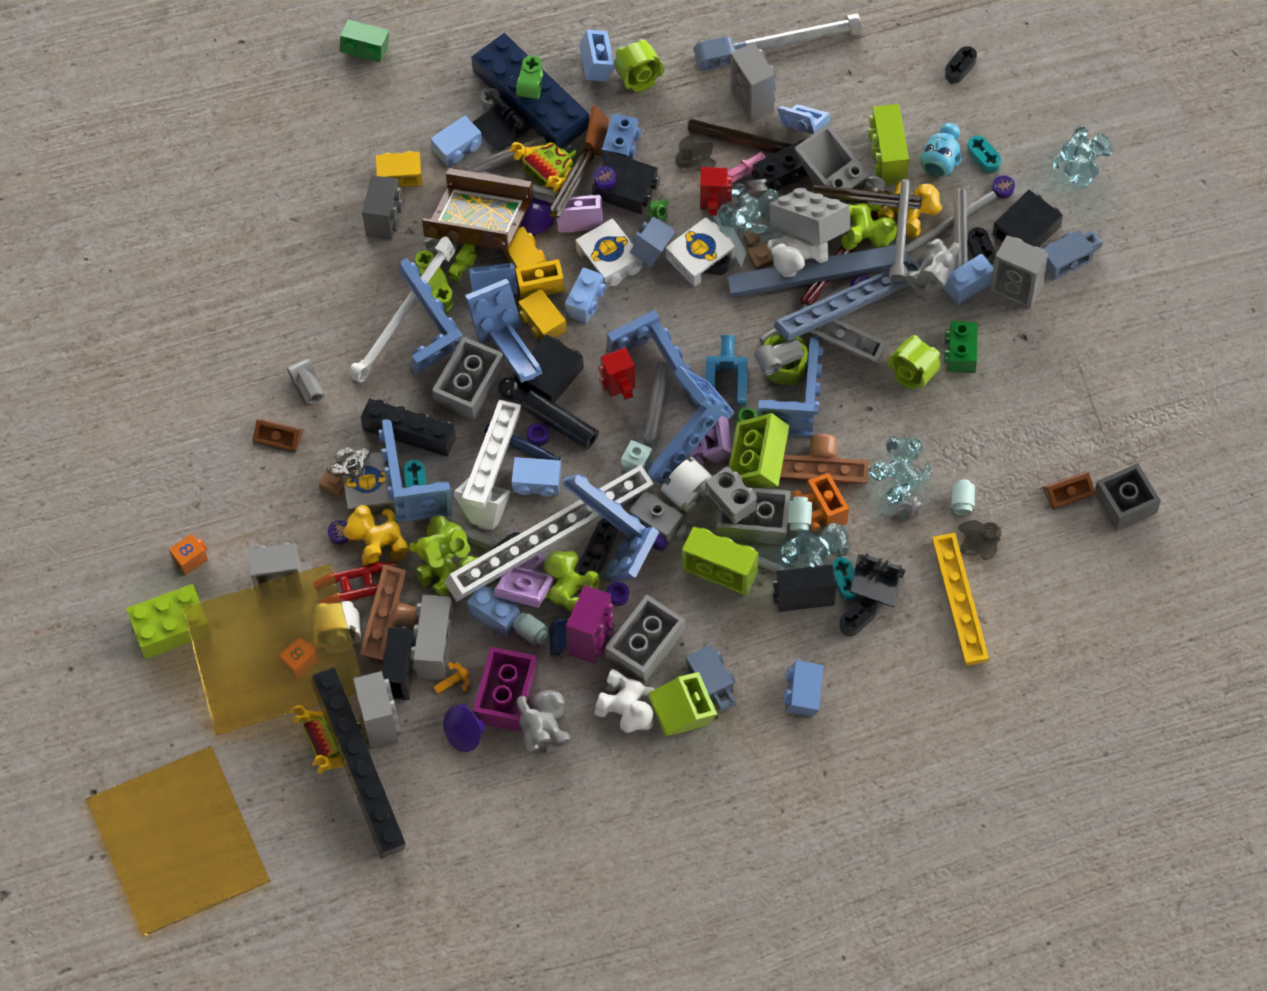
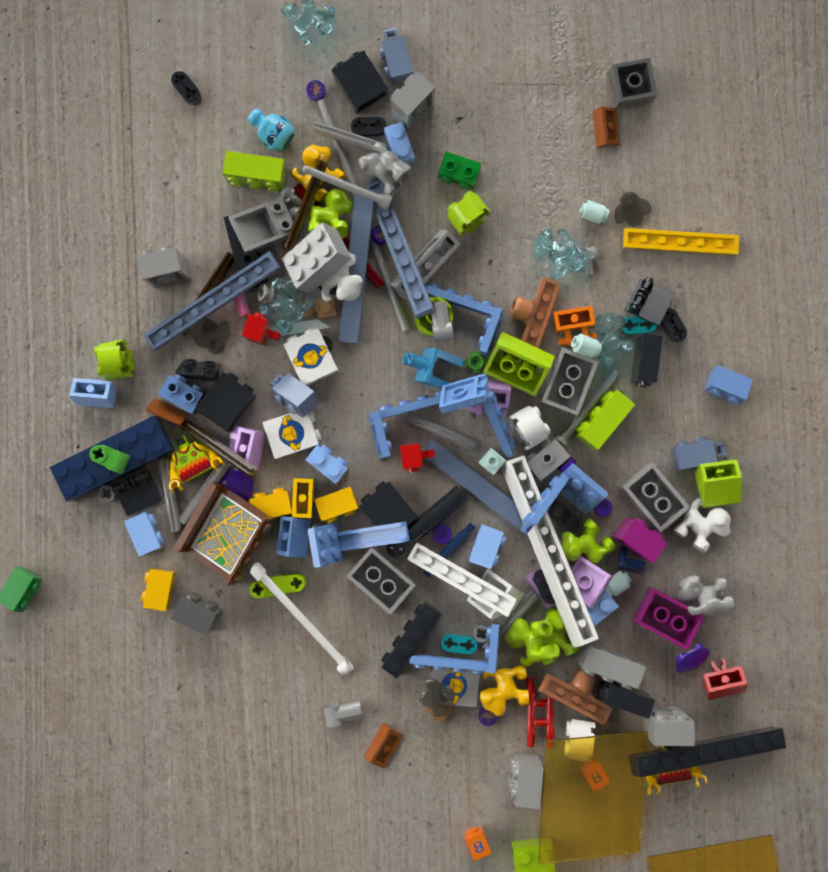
camera: 80 degrees left, 25 degrees up
(444, 770) = (724, 681): none -> red brick
(450, 334) = (346, 596): medium blue bracket -> none
(461, 674) = (640, 648): light orange piece -> none
(464, 258) = (262, 554): lime plate -> none
(604, 177) = (222, 418): dark purple tile -> none
(608, 449) = (475, 484): none -> sand blue tile
(651, 146) = (191, 368): none -> black hinge
(653, 209) = (260, 381): bright green plate -> none
(717, 52) = (119, 282): piece -> none
(726, 497) = (561, 401): light grey brick -> none
(732, 139) = (212, 301): none -> sand blue tile
(803, 118) = (207, 234): light blue bracket -> none
(981, 156) = (278, 92): teal beam -> none

